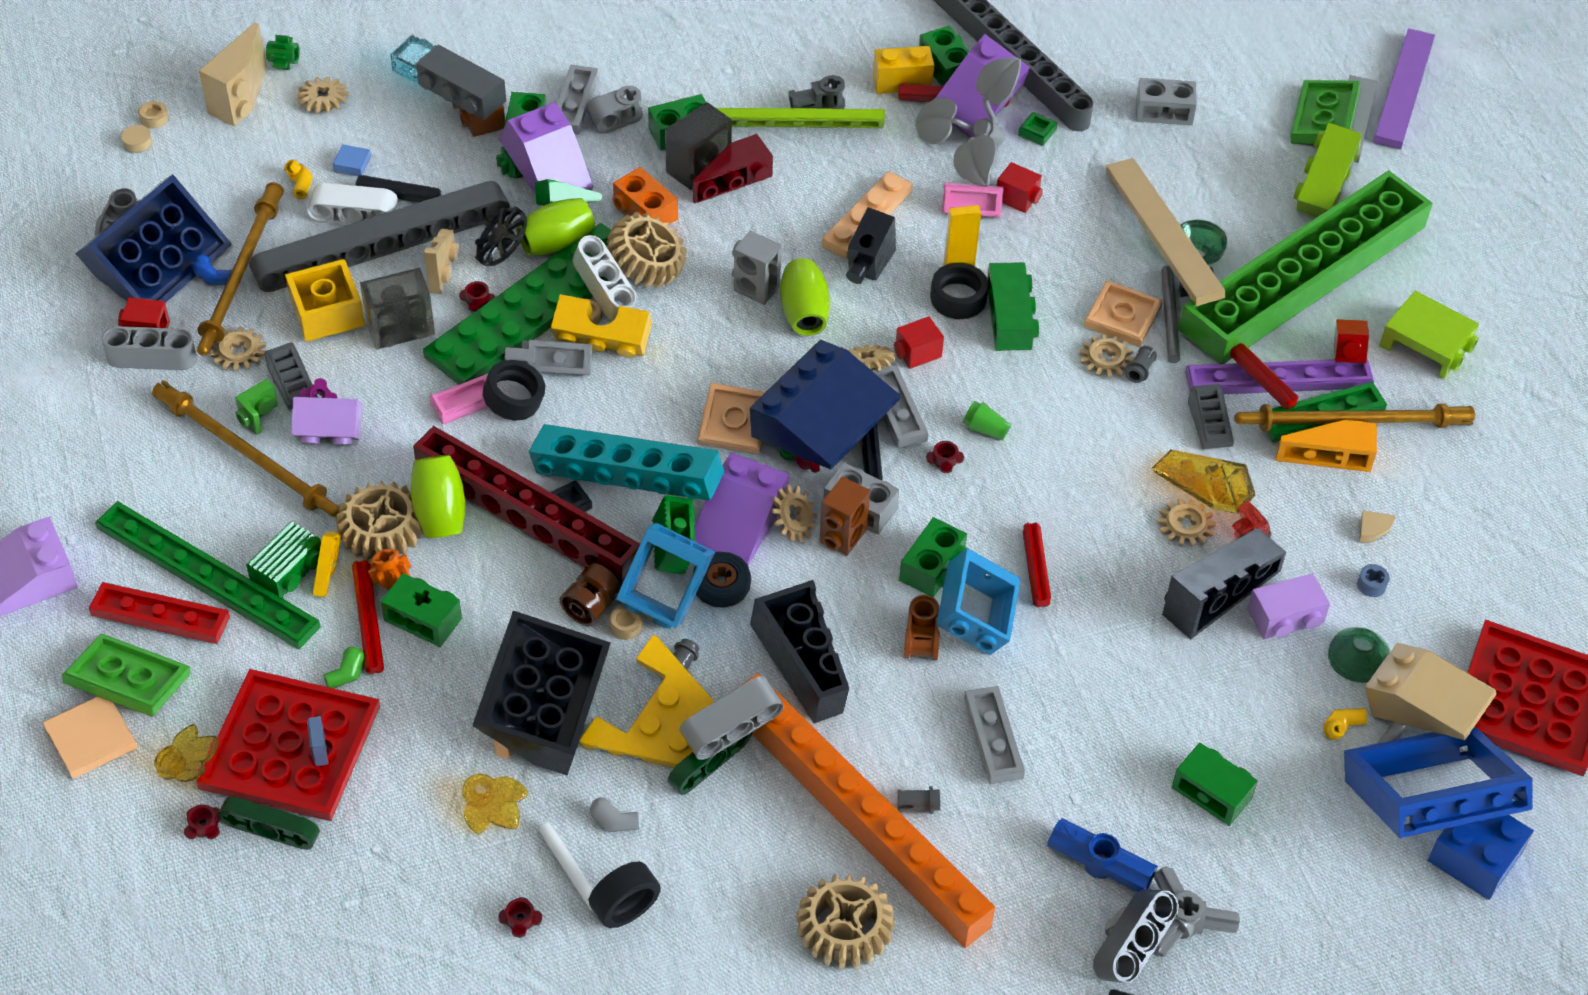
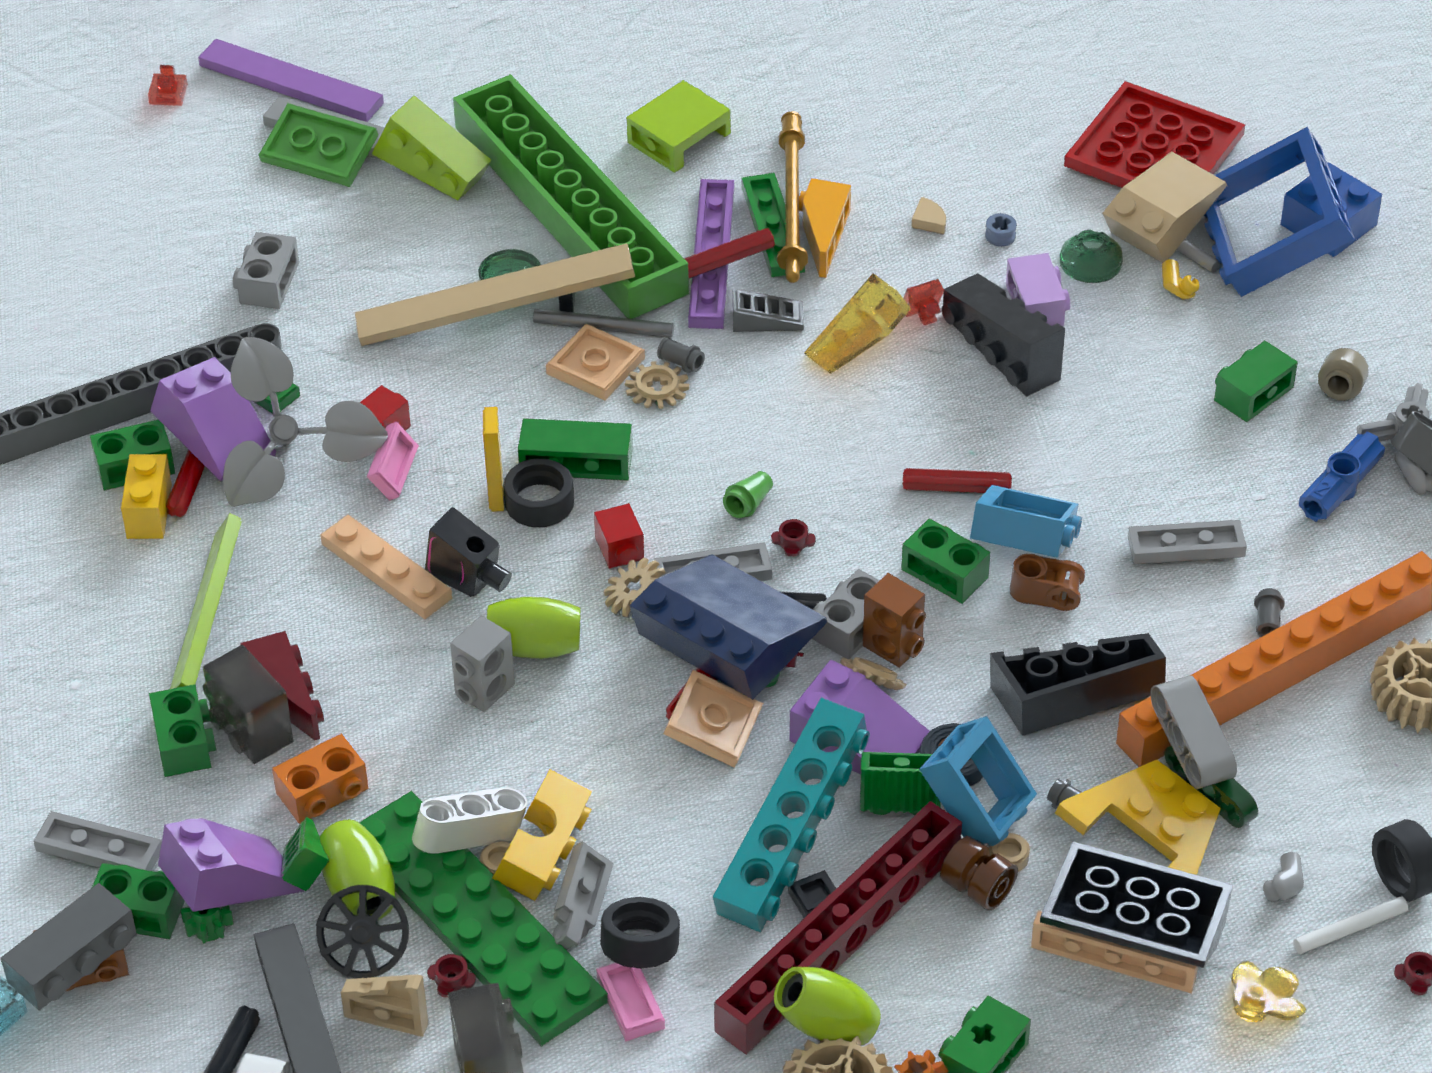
camera: 80 degrees left, 5 degrees down
(615, 111) = (135, 797): light grey piece -> none
(647, 250) = (422, 770): tan gear -> none
(820, 94) = (171, 585): dark grey connector -> none
(1189, 511) = (922, 355): tan gear -> none
(1241, 856) = (1343, 374): none -> dark tan head
(1351, 341) = (685, 180): red brick -> none
(1367, 18) = (167, 87): none -> clear red tile

